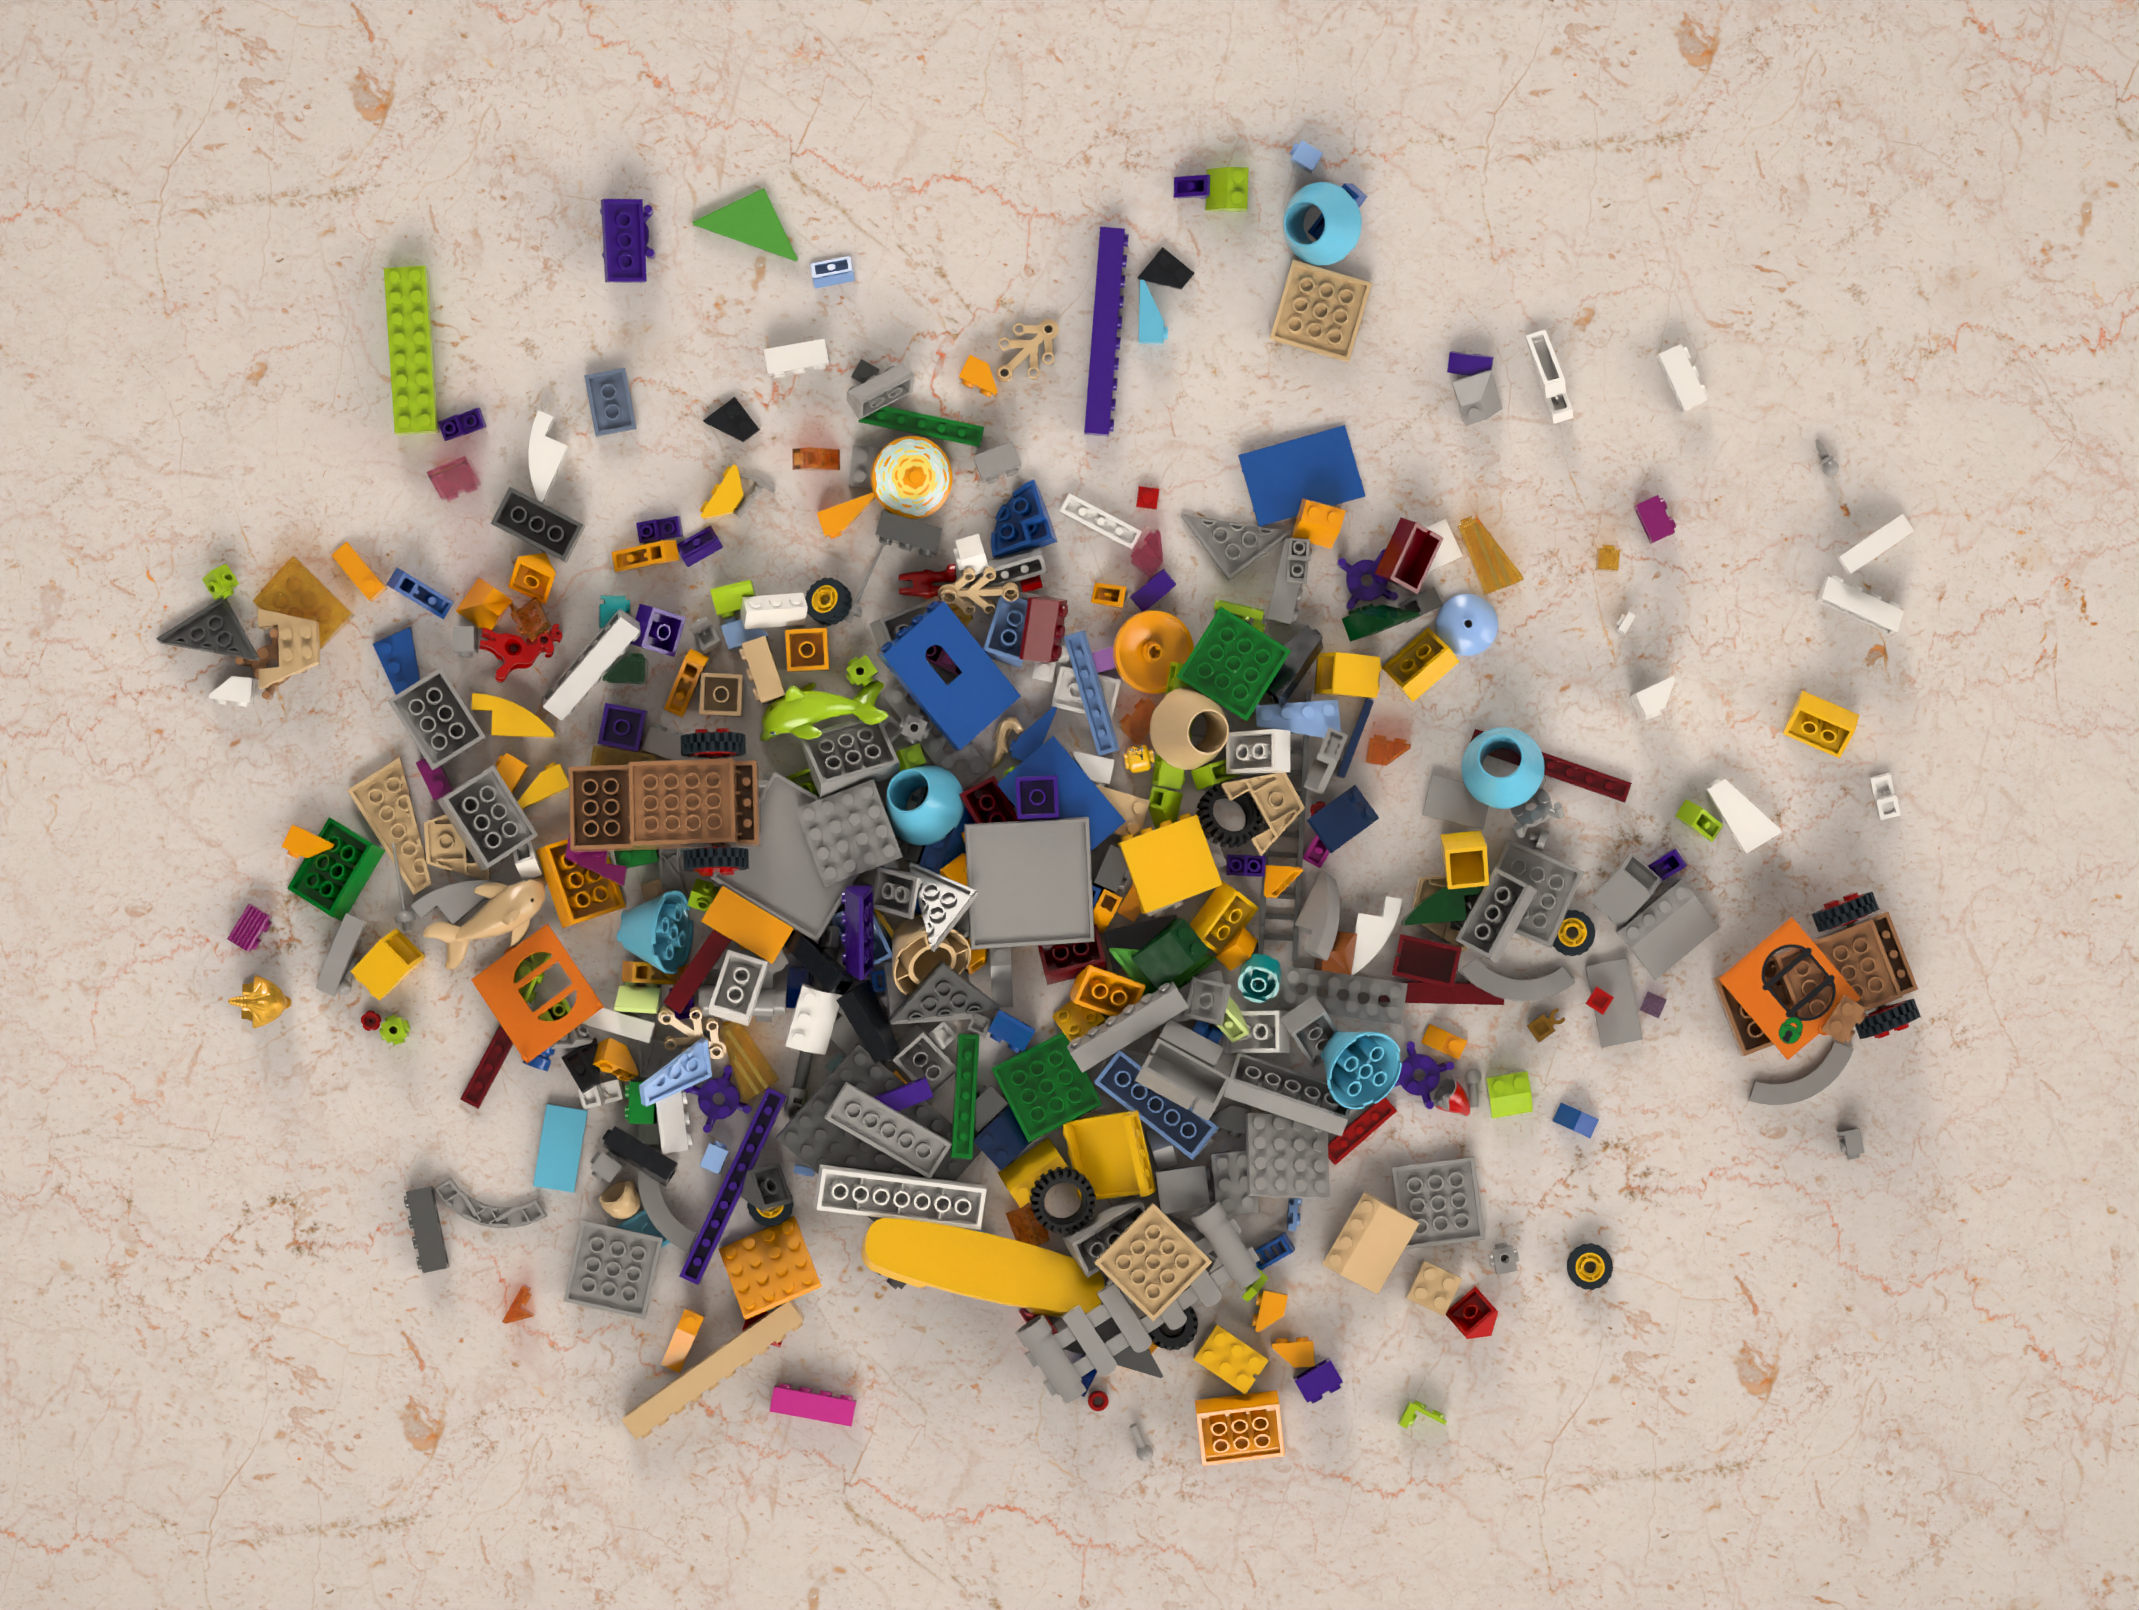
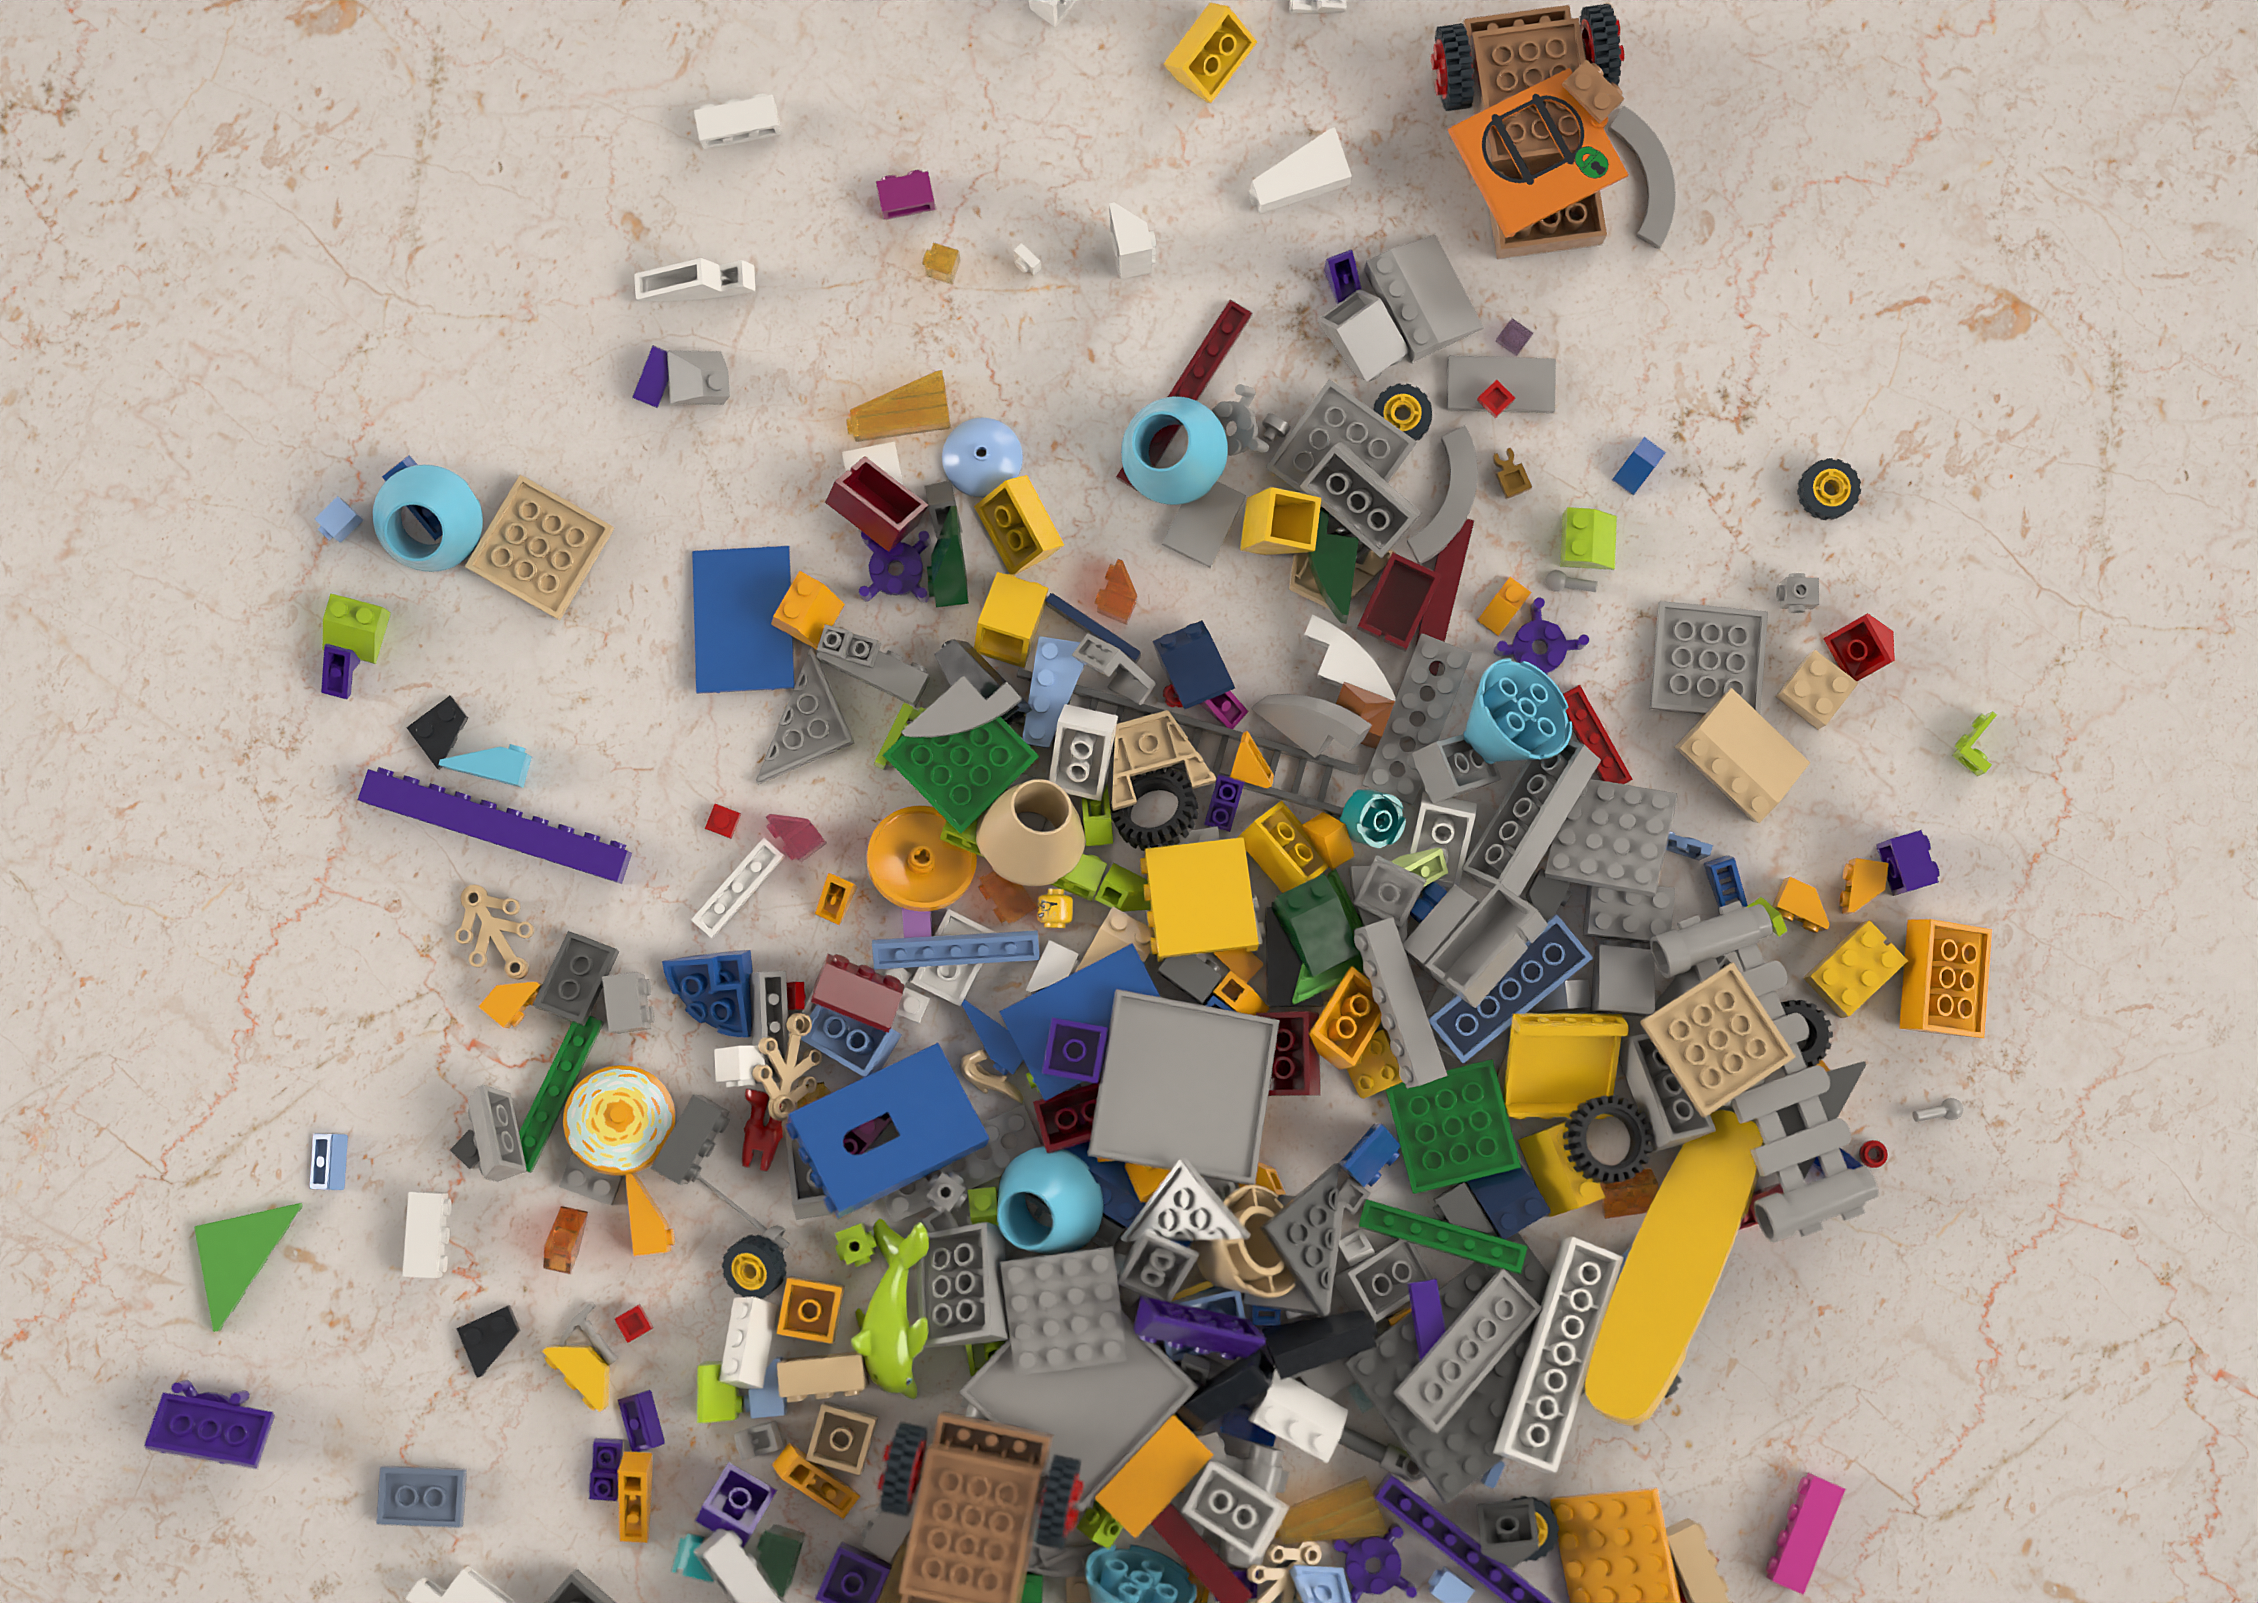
camera: 75 degrees left, 5 degrees down
(767, 524) = (633, 1323): none -> red plate
(1001, 976) = (1297, 1152): light grey slope -> none
(1006, 420) = (575, 978): none -> dark grey plate
(1153, 590) = (843, 841): dark purple slope -> none
(1265, 657) = (961, 710): none -> light grey slope
(1452, 1098) = (1578, 612): hat -> none
(1699, 820) = (1295, 227): lime slope -> none
(1851, 1143) = (1740, 133): light grey brick -> none

